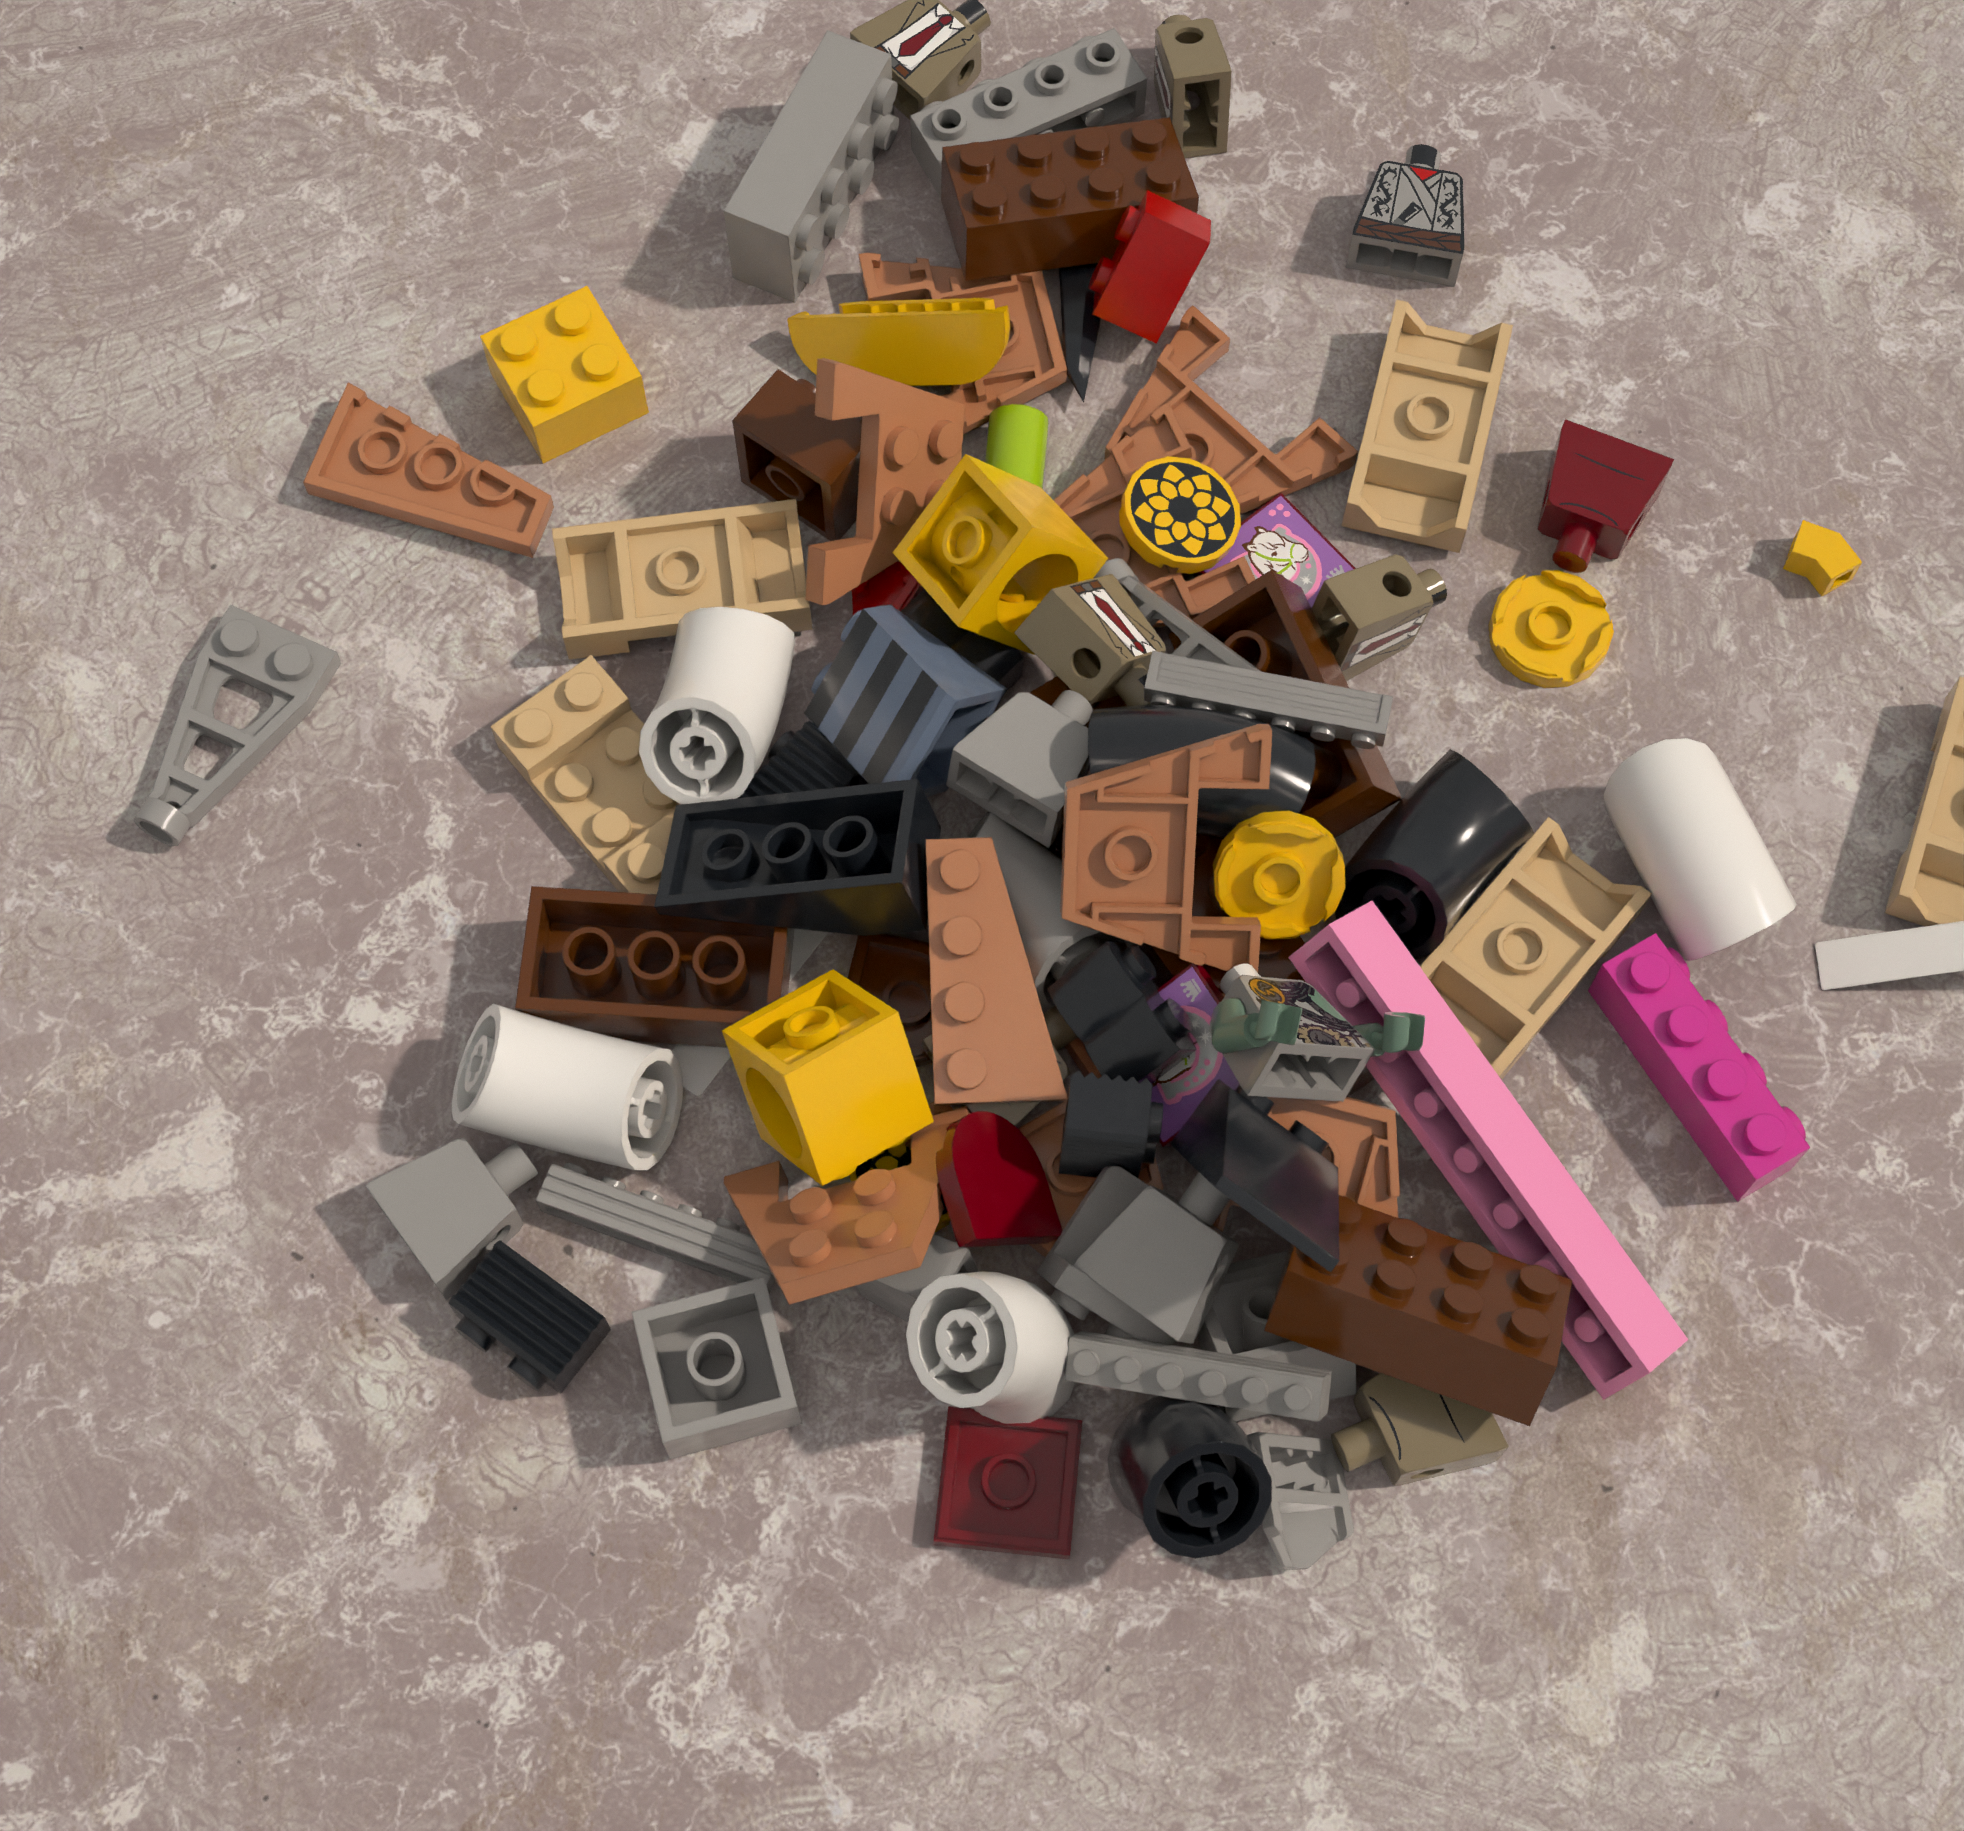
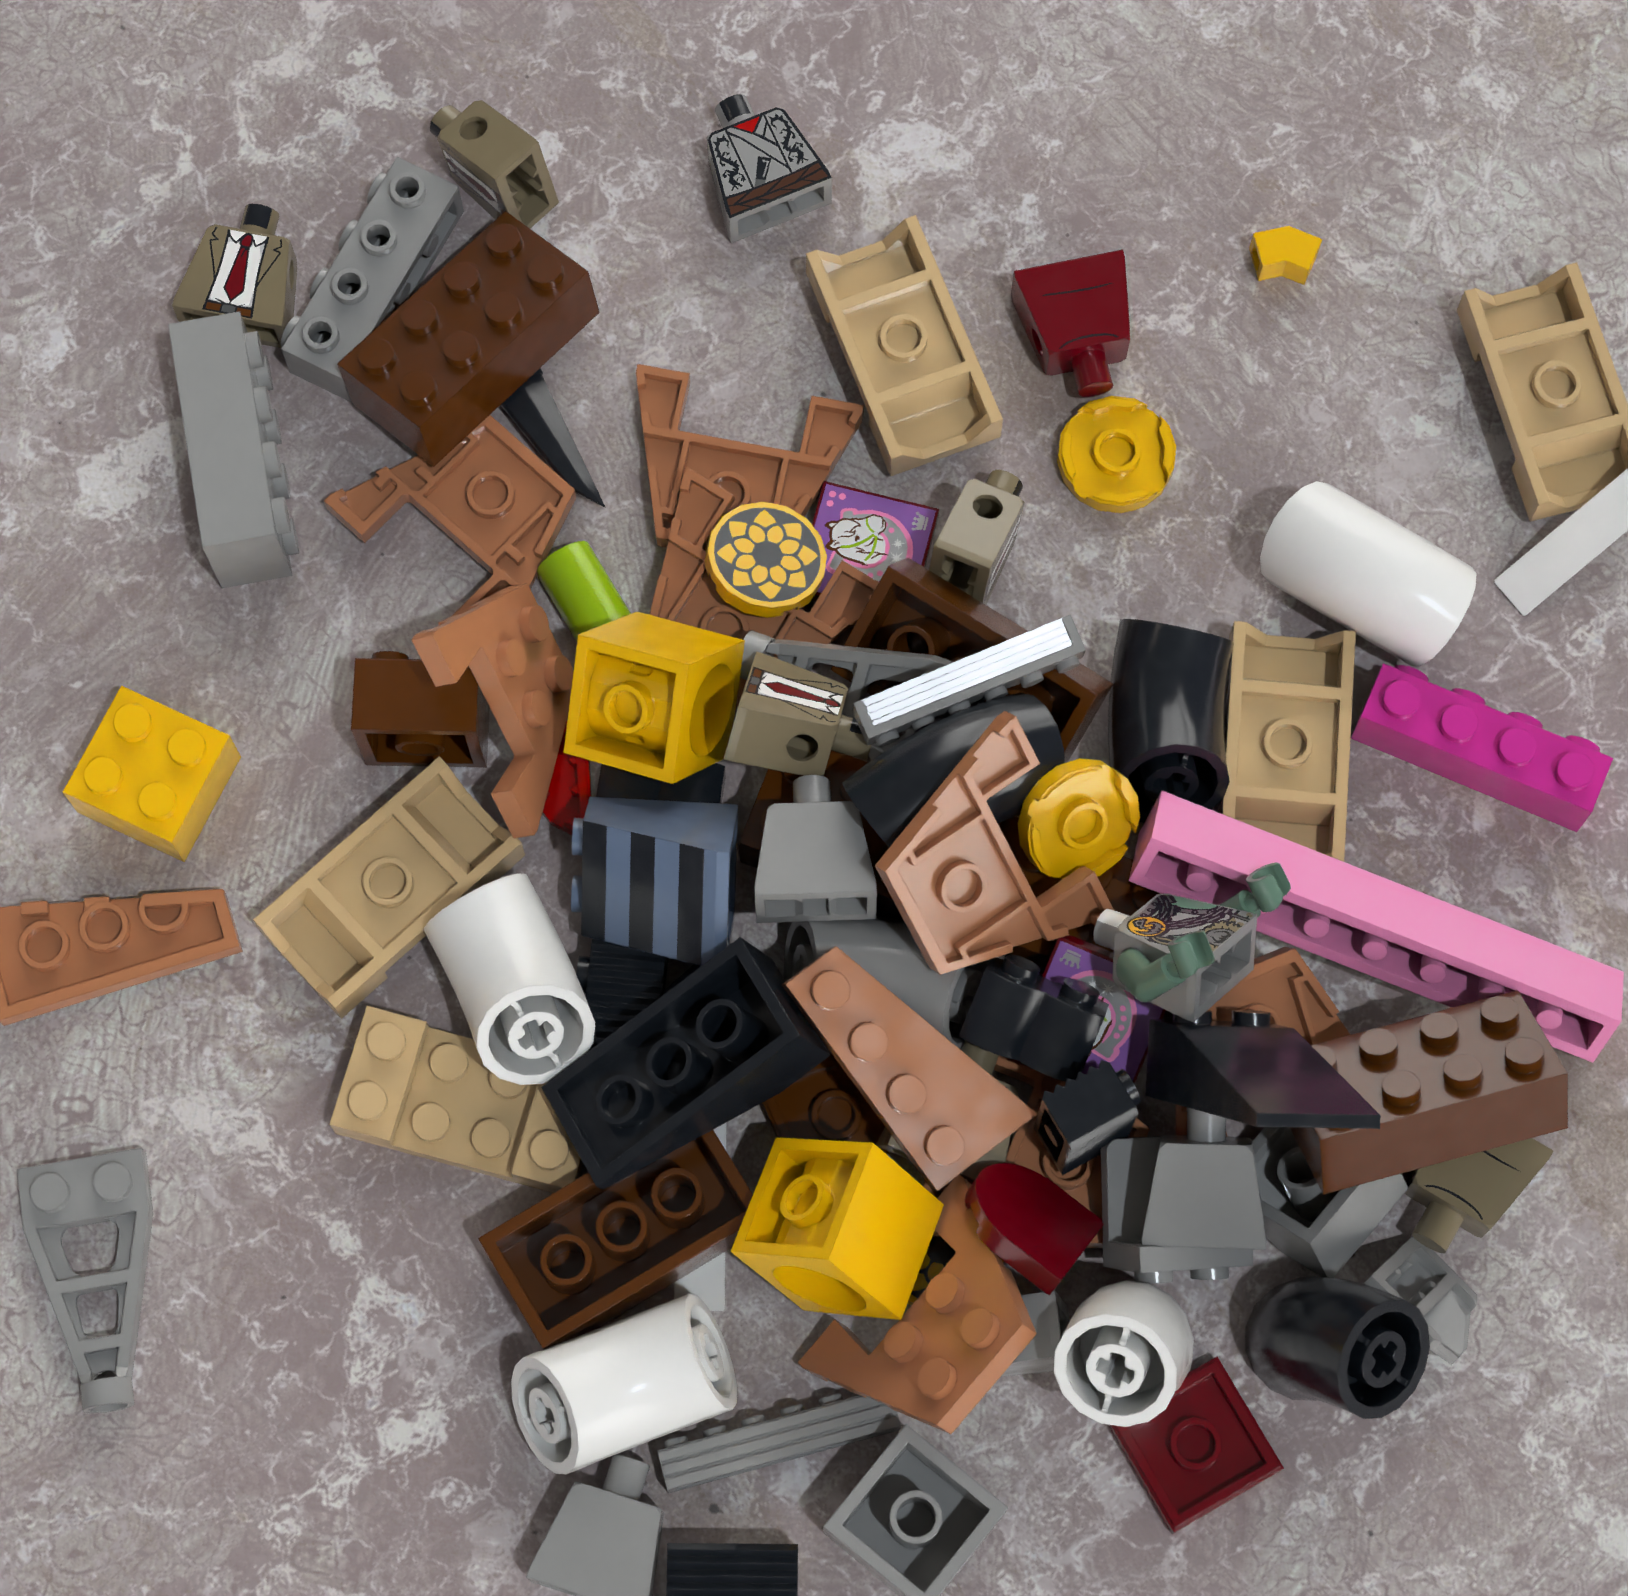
camera: 35 degrees left, 5 degrees up
(908, 339) = (424, 554): yellow brick -> none
(1150, 266) = (587, 356): red brick -> none
(1199, 1375) = (1297, 1264): light grey piece -> none

